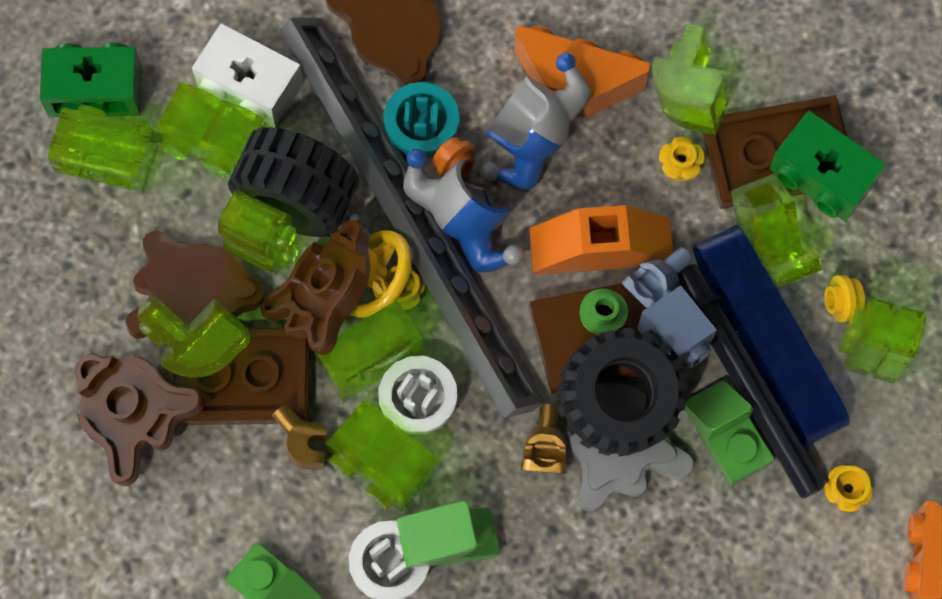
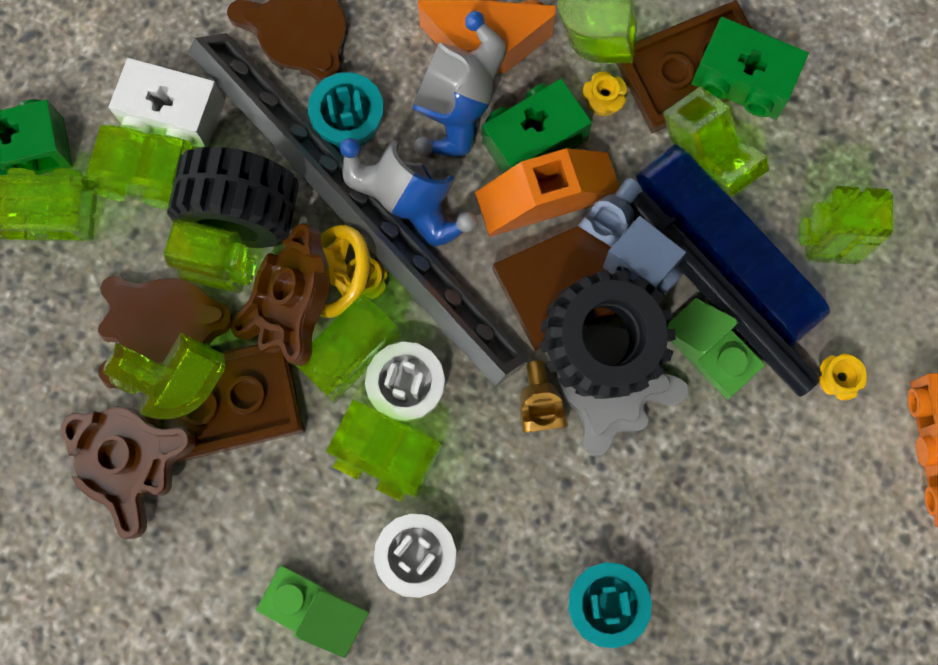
camera: 10 degrees left, 5 degrees up
(299, 437) = (297, 450): pearl gold piece -> none
(448, 535) = (467, 517): bright green slope -> none
(452, 152) = (382, 136): orange plate -> none
(597, 323) = (566, 271): bright green plate -> none
(616, 160) = (544, 107): none -> green brick
(844, 297) = (794, 192): yellow plate -> none

